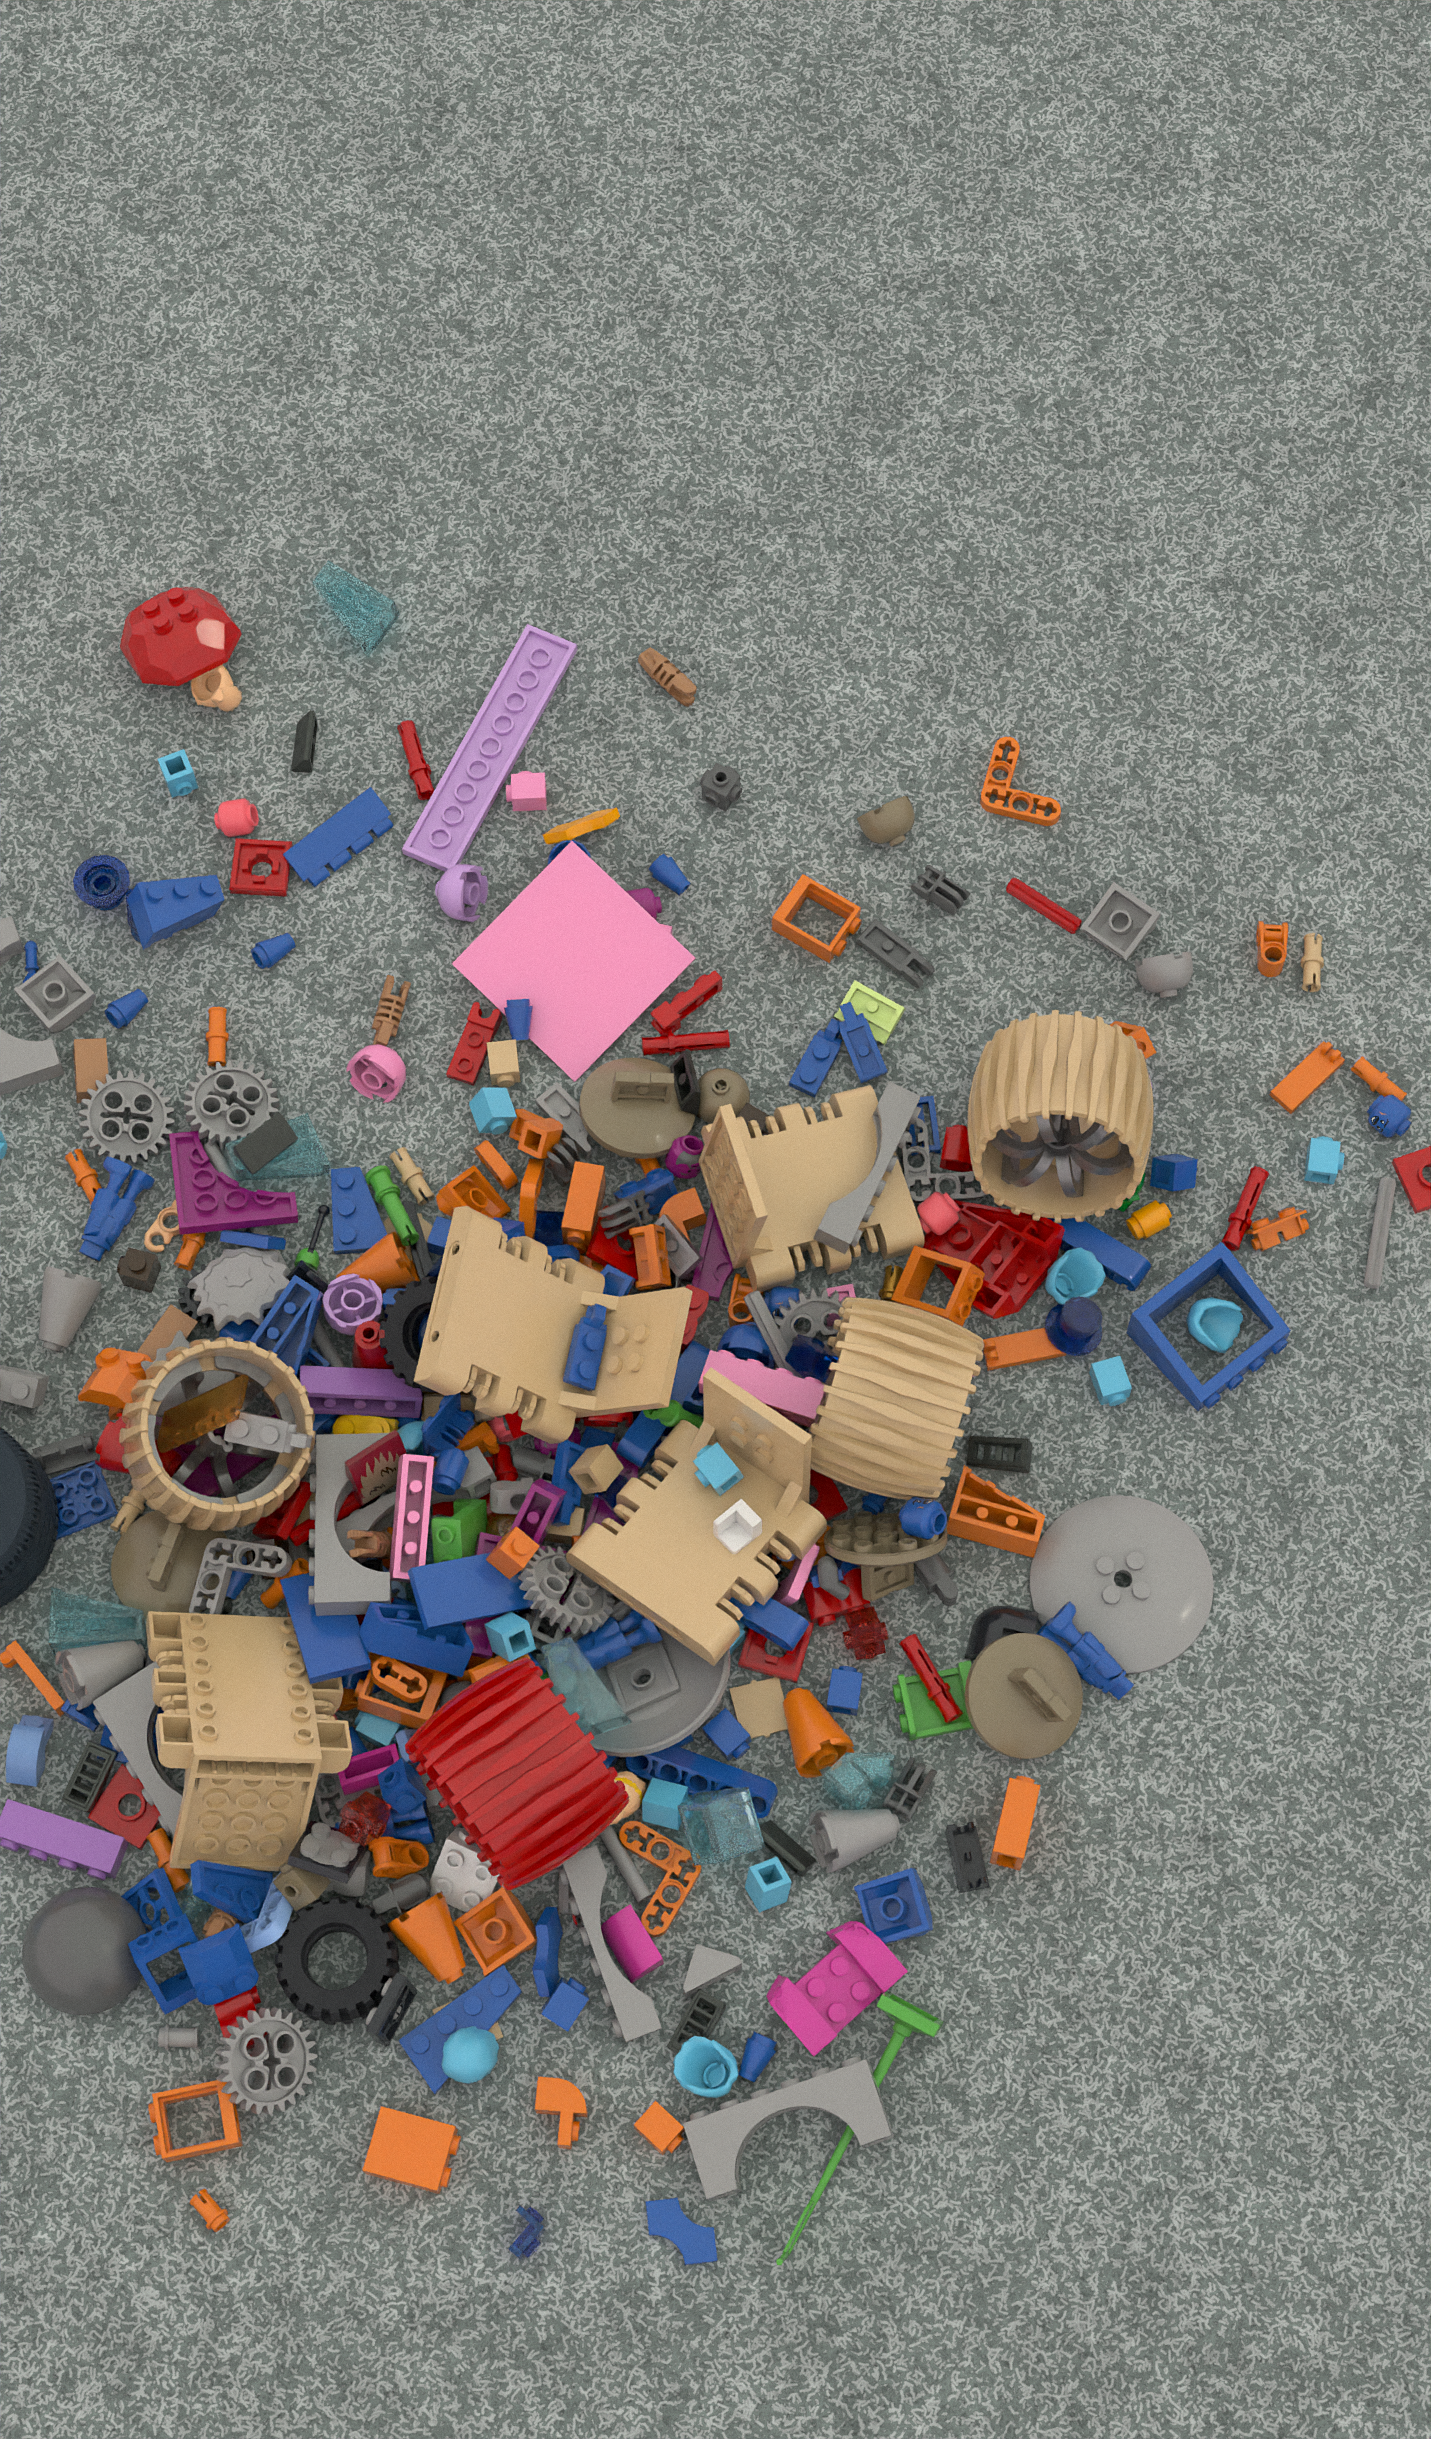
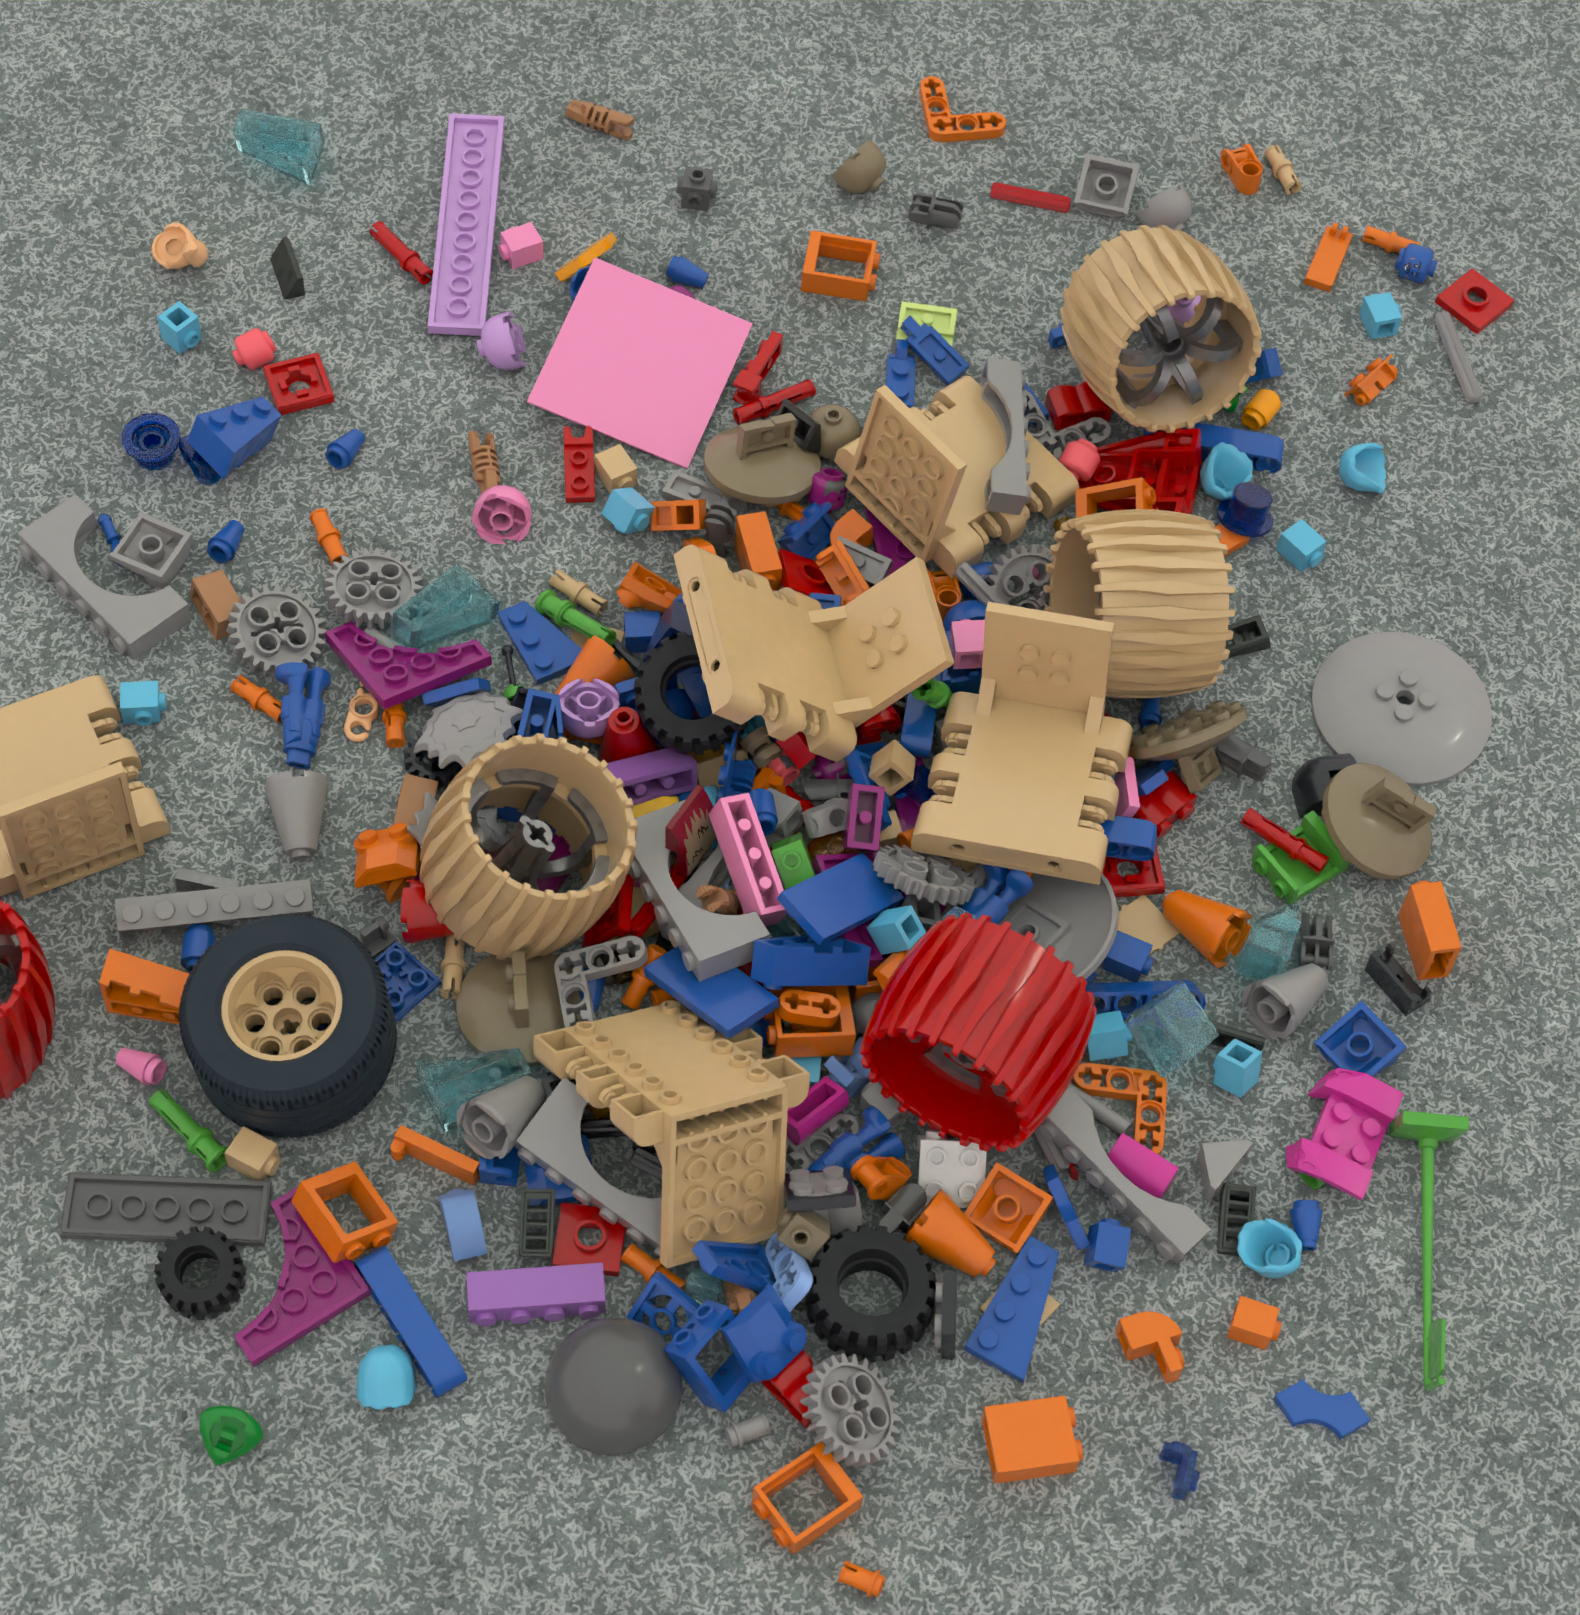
camera: 30 degrees left, 10 degrees down
(139, 1269) = (355, 757): dark brown brick -> none
(178, 636) = (123, 213): red rock -> none
(202, 1414) = (519, 817): clear orange windscreen -> none
(265, 1143) = (432, 598): pearl dark grey slope -> none
(266, 1433) = (585, 815): light grey hinge -> none
(343, 830) = (362, 336): blue windscreen -> none
(364, 1818) = (840, 1144): clear red brick -> none
(402, 1787) = (857, 1106): blue brick -> none
(469, 2054) = (1043, 1328): medium azure hair -> none
(496, 1165) = (652, 556): orange beam -> none
(512, 1552) = (863, 853): orange brick -> none
(519, 1018) = (613, 424): blue cone -> none
(586, 1349) = (839, 657): blue hinge -> none
(625, 1214) = (806, 544): dark grey arm -> none
(716, 1469) = (1016, 712): medium azure brick -> none
(721, 2136) = (1411, 1217): light grey arch -> none
(737, 1527) = (1063, 752): white panel -> none
(811, 1358) = (1040, 599): clear blue brick -> none
(829, 1579) = (1158, 780): dark grey arm -> none
(844, 1690) = (1213, 879): blue brick -> none
(865, 1633) = (1206, 824): clear red brick -> none
(894, 952) = (923, 273): dark grey hinge -> none
(922, 1518) = (1219, 692): blue head -> none
(992, 1517) = (1269, 687): orange wedge -> none
(1087, 1653) = (1413, 767): blue piece -> none
(1154, 1344) = (1332, 504): blue windscreen -> none
(1240, 1219) = (1337, 382): red pin -> none

